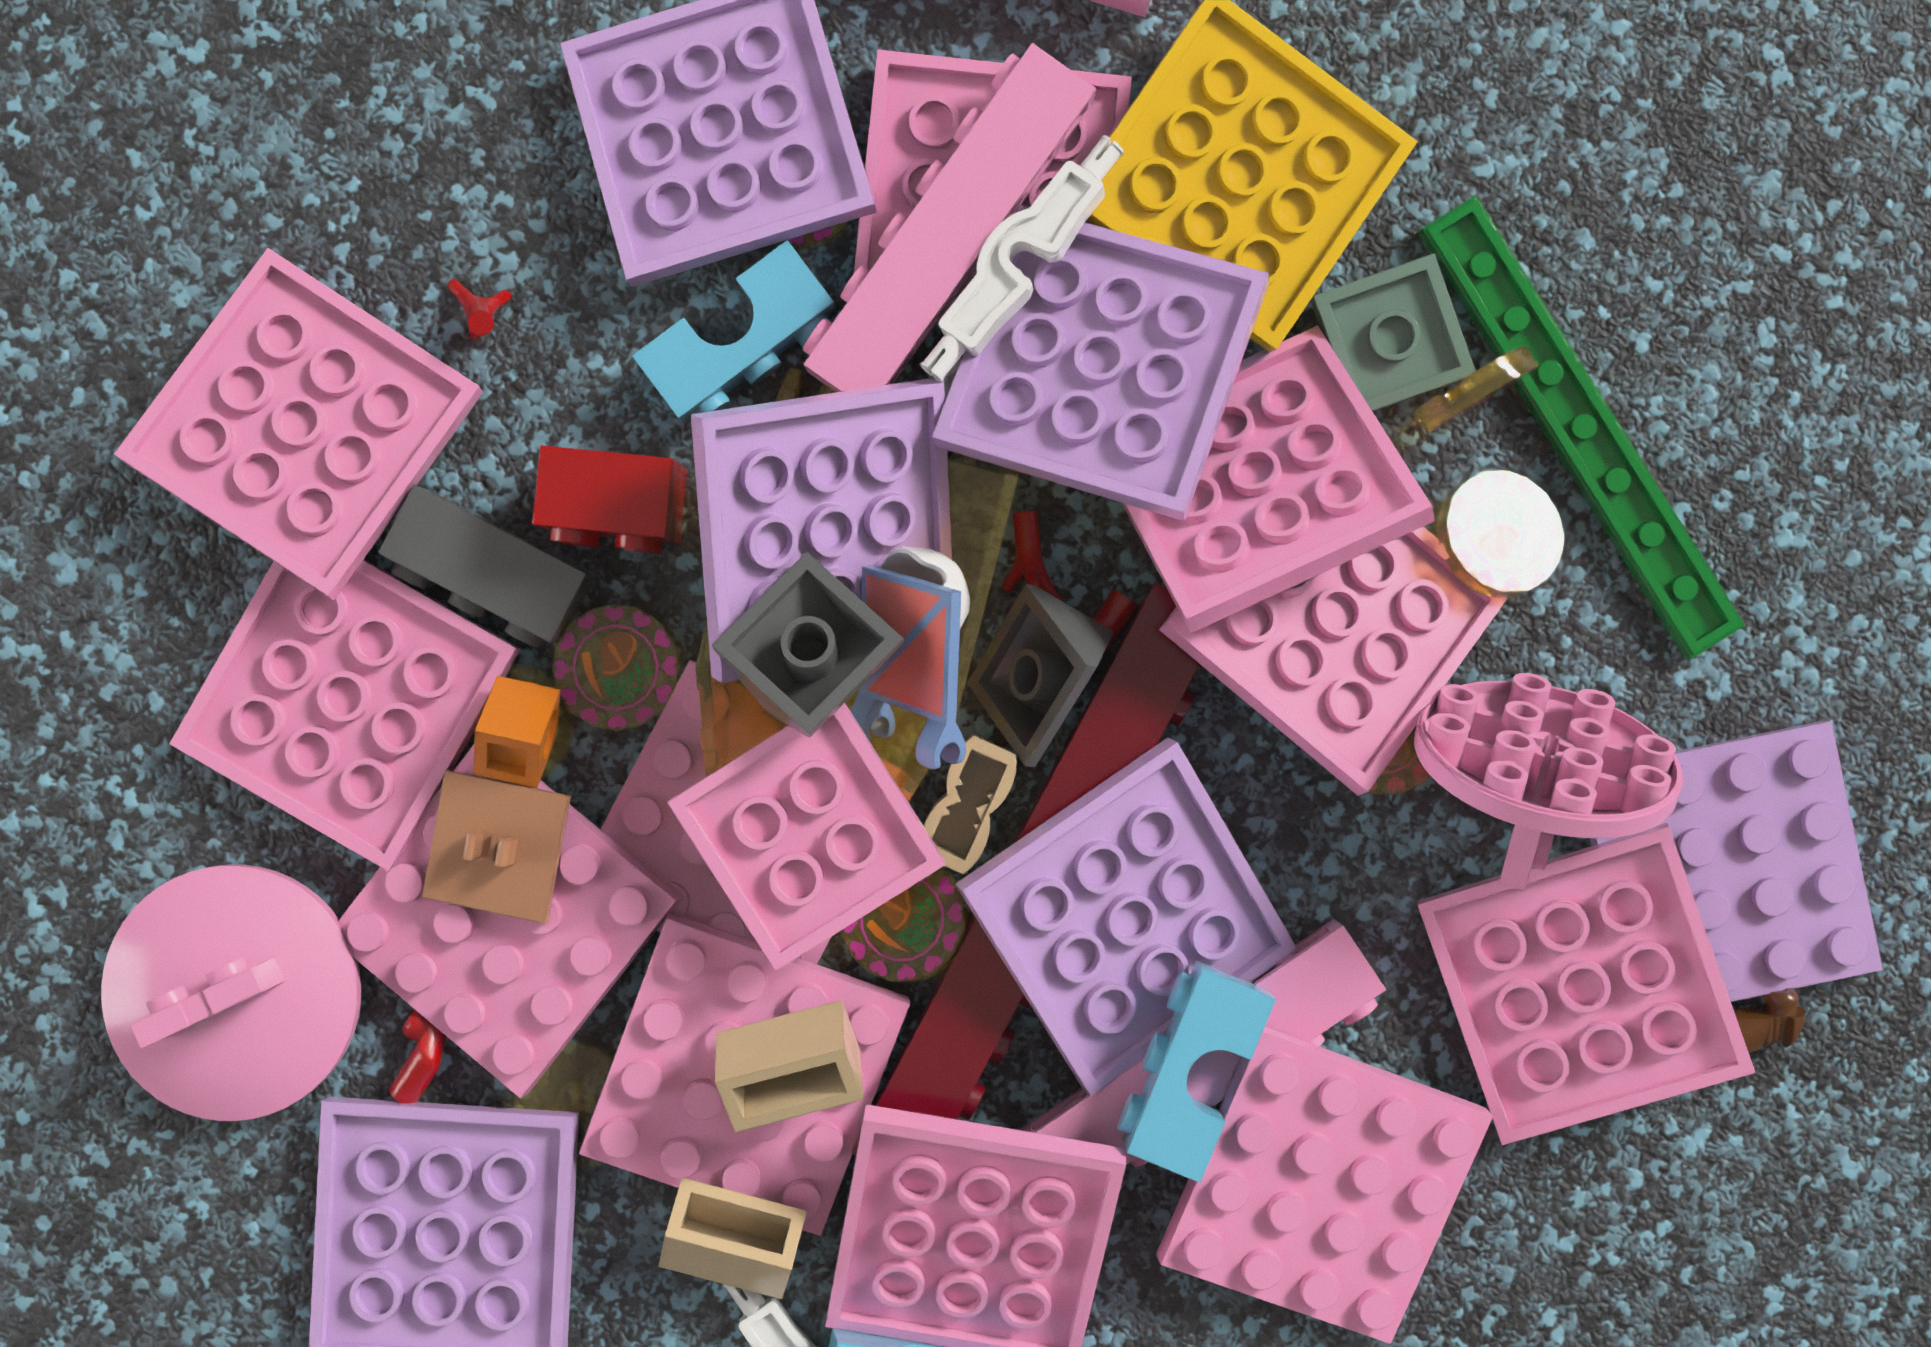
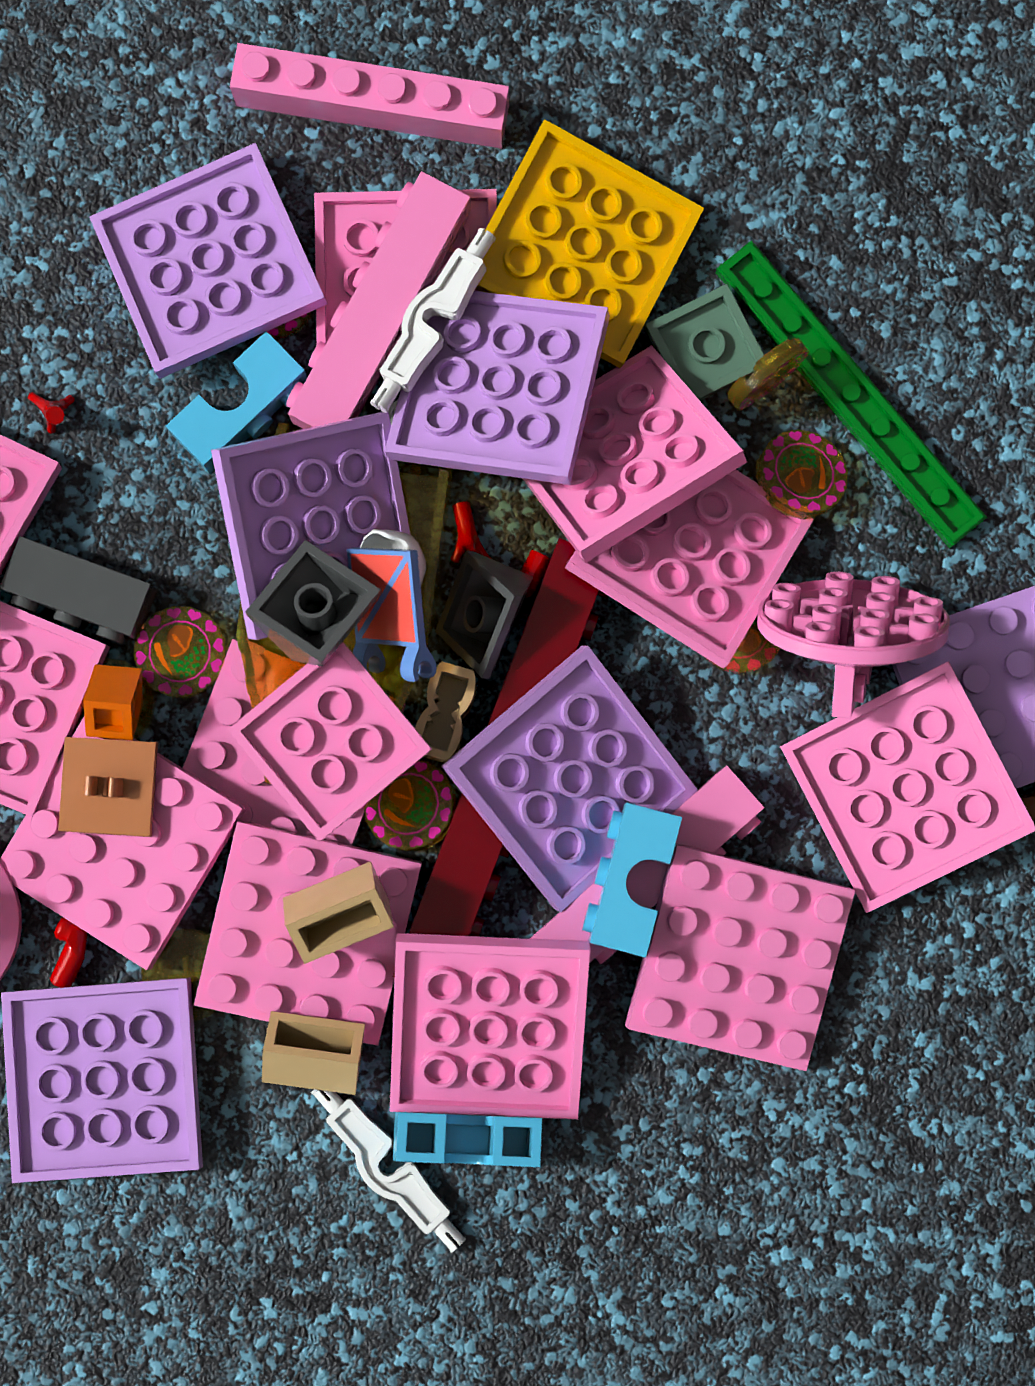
camera: 10 degrees left, 5 degrees down
(609, 496) = (161, 527): red brick -> none

